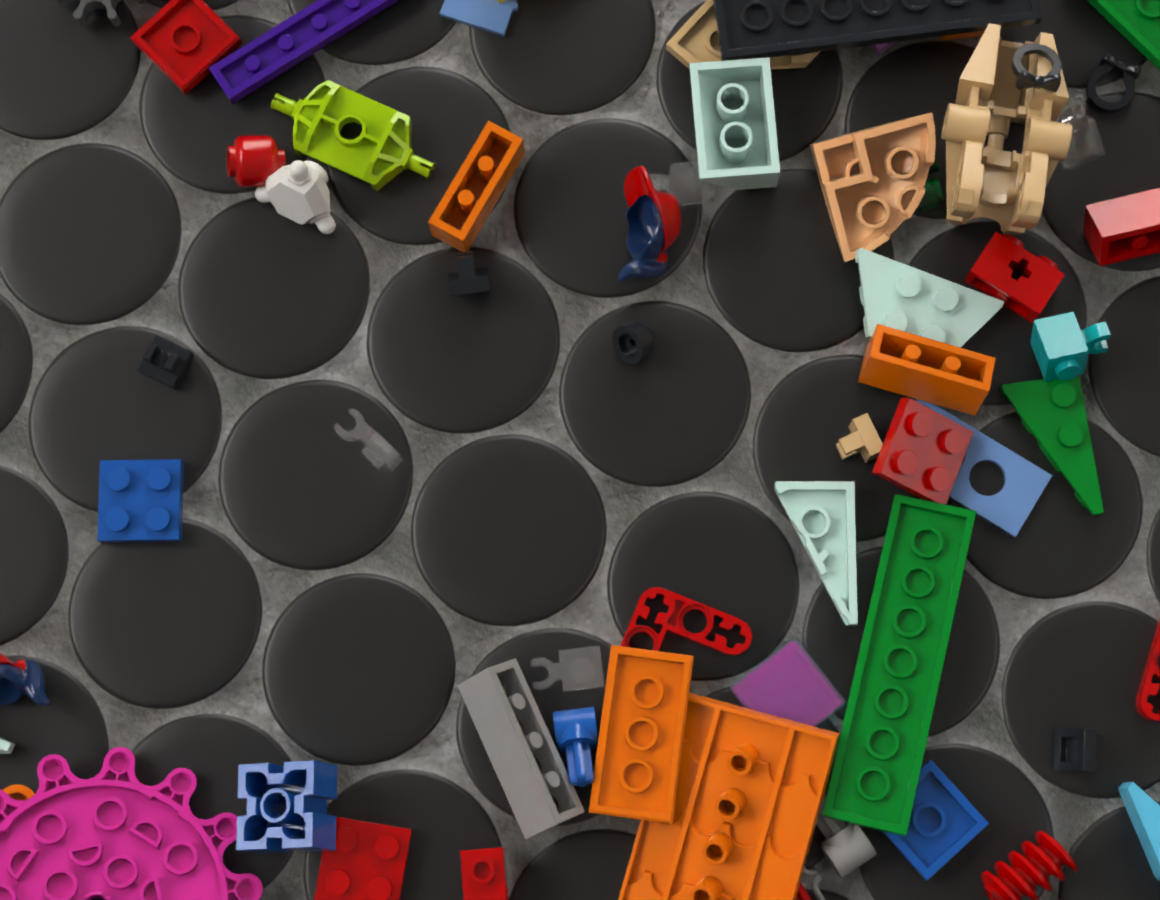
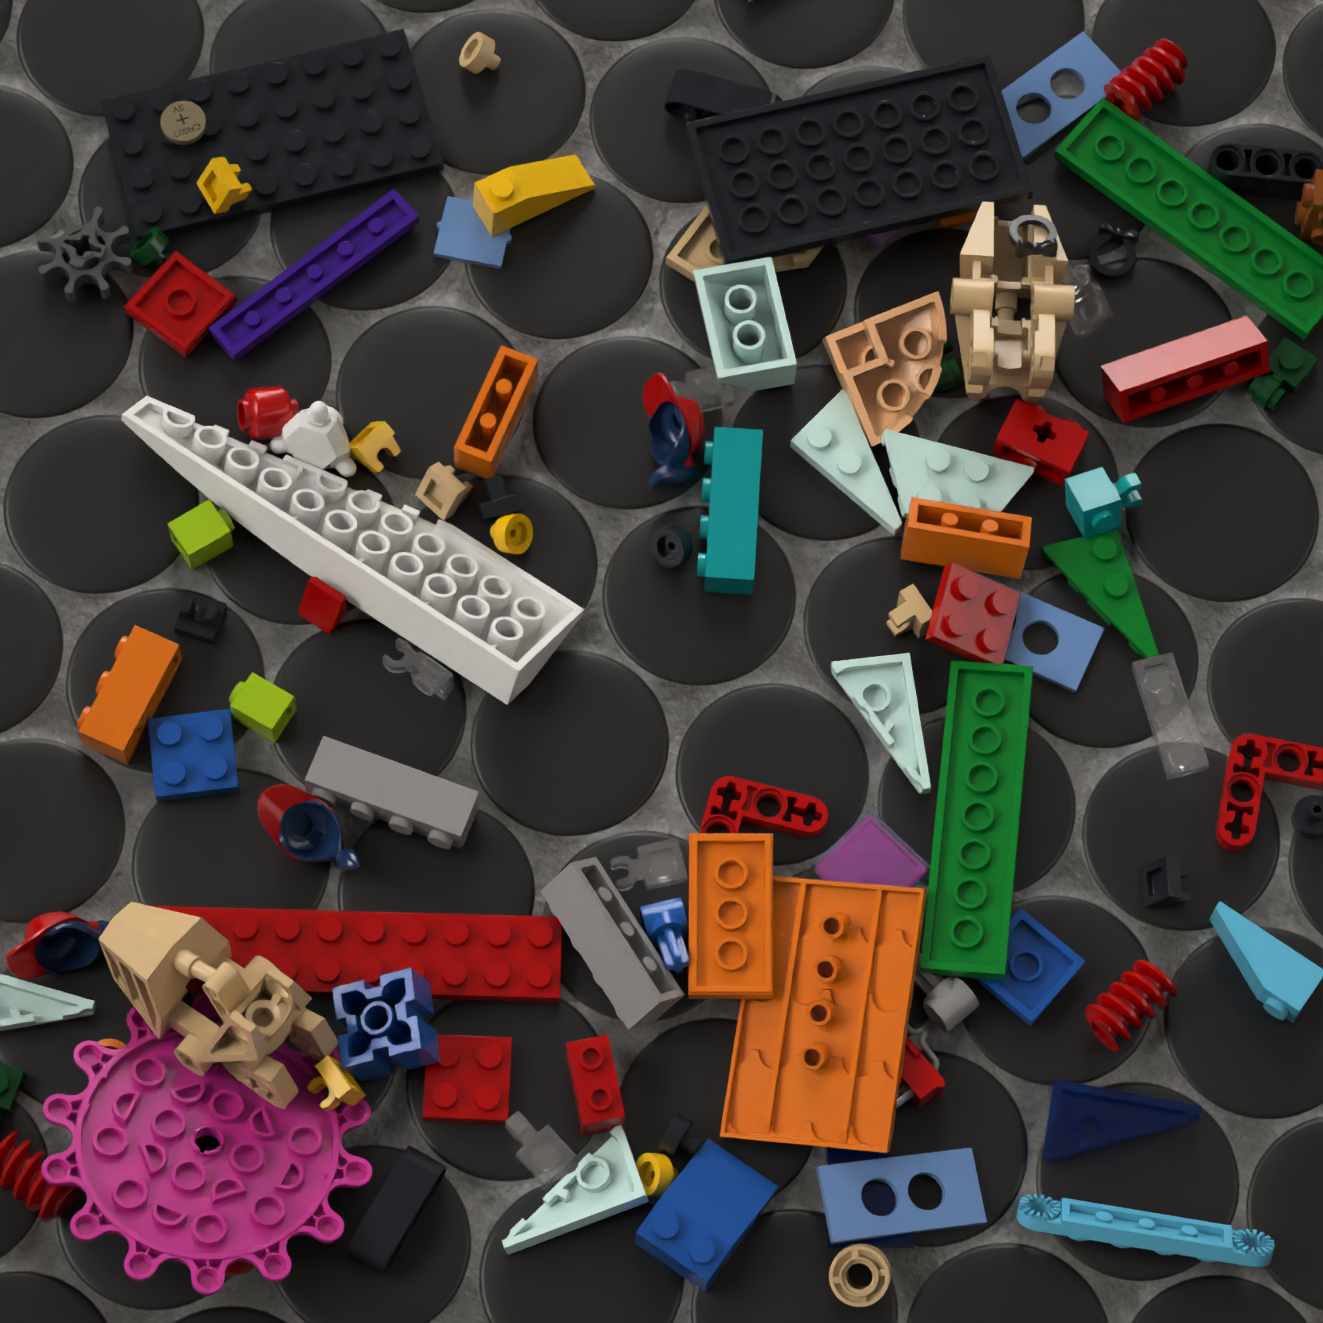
camera: 15 degrees left, 10 degrees down
(72, 721) = (161, 950): none -> tan piece
(85, 433) = (129, 694): none -> orange brick
(176, 277) = (202, 533): none -> lime brick
(211, 461) = (262, 707): none -> lime brick
(234, 594) = (304, 827): none -> dark blue hair
(234, 865) = (339, 1082): none -> yellow tile
(265, 721) = (455, 952): none -> red plate
(284, 364) = (323, 605): none -> red slope
(324, 566) = (392, 793): none -> light grey brick
(351, 201) = (368, 443): none -> yellow tile
(356, 327) = (387, 561): none -> white wedge
(372, 157) = (386, 396): lime plate -> none
(415, 260) = (442, 490): none -> tan tile
(478, 312) = (512, 533): none -> yellow tile
(698, 312) = (732, 510): none -> teal brick
(813, 263) = (840, 452): none -> light aqua wing
(1106, 576) = (1170, 716): none -> clear plate

